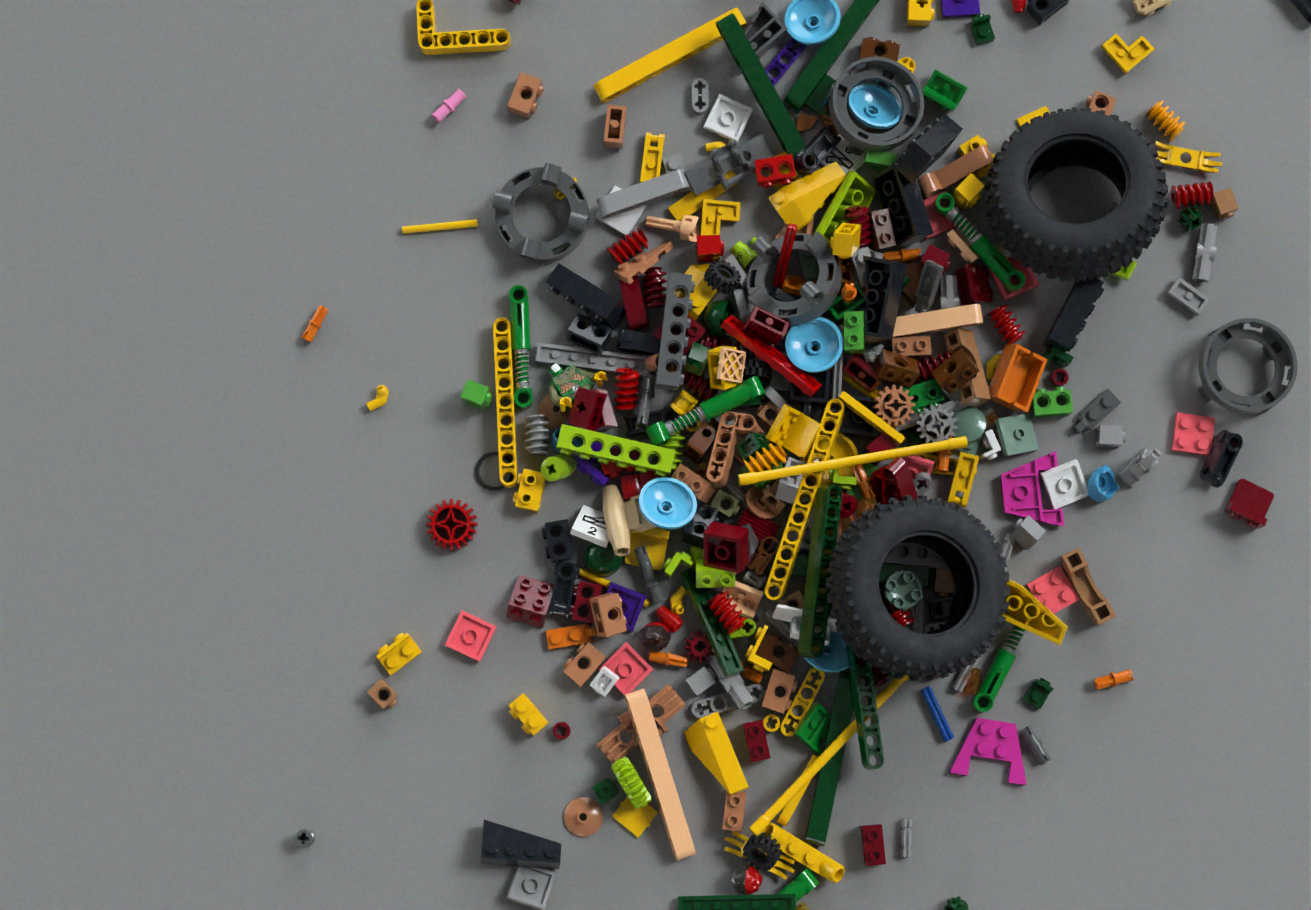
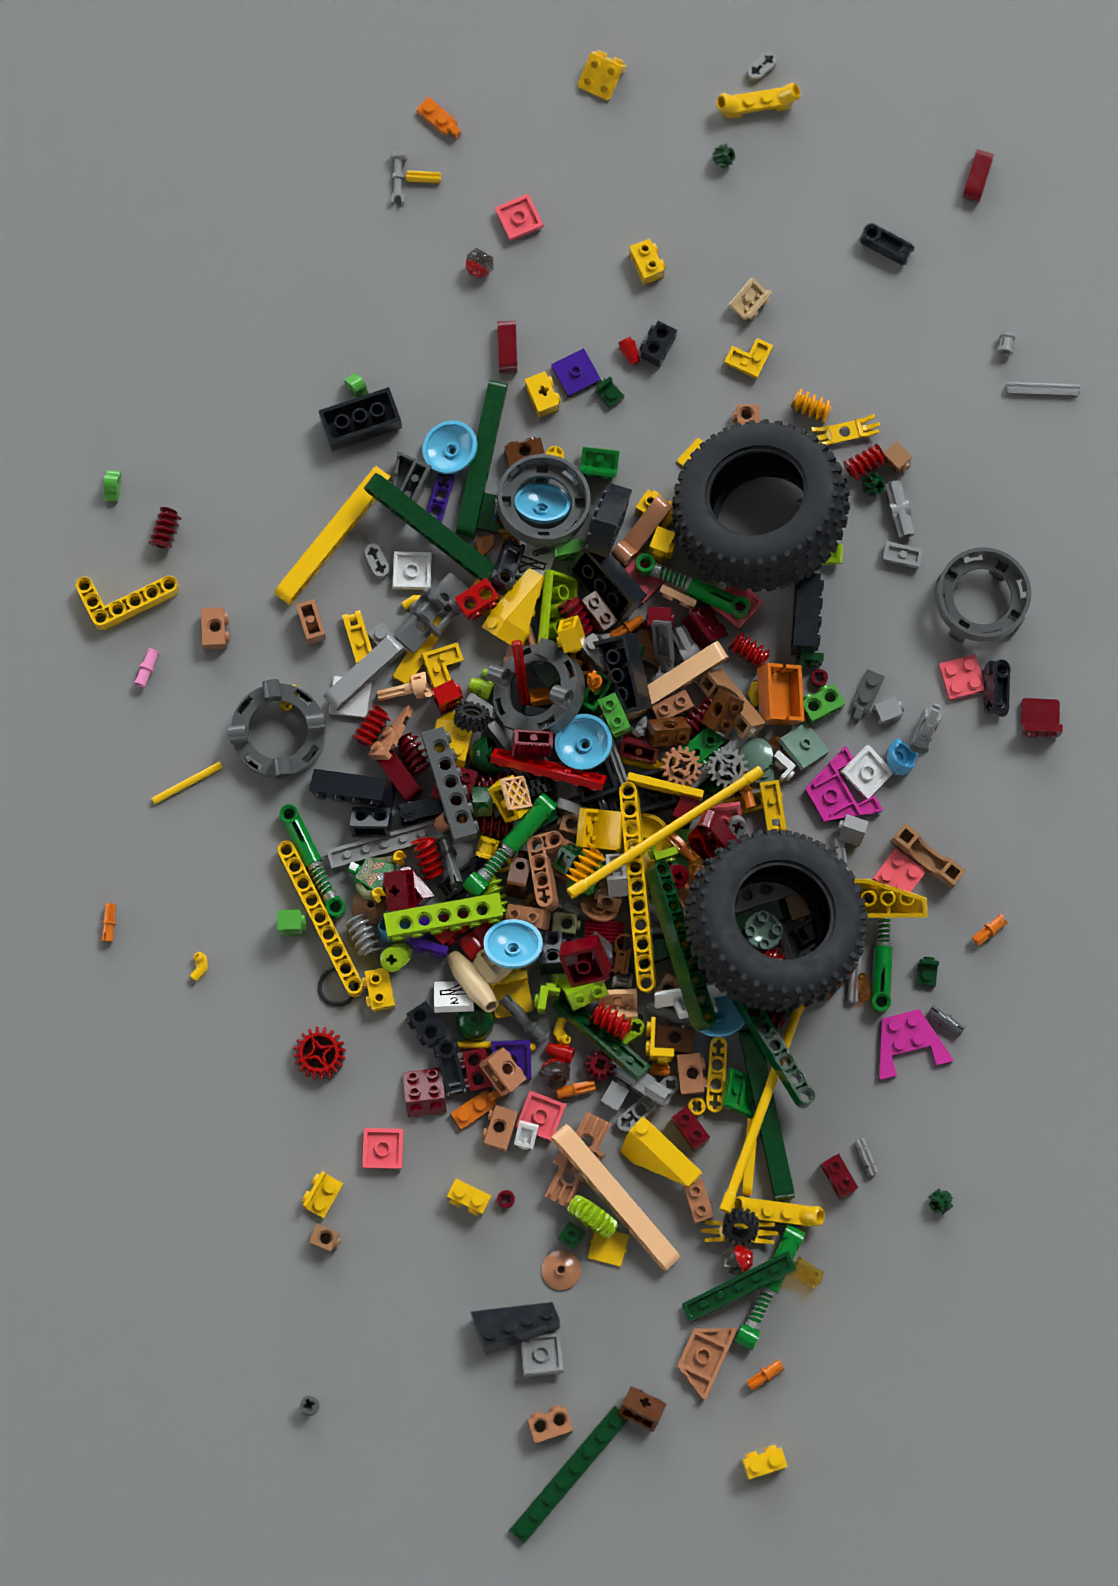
camera: 25 degrees left, 5 degrees down
(937, 713) = (844, 1031): blue axle -> none

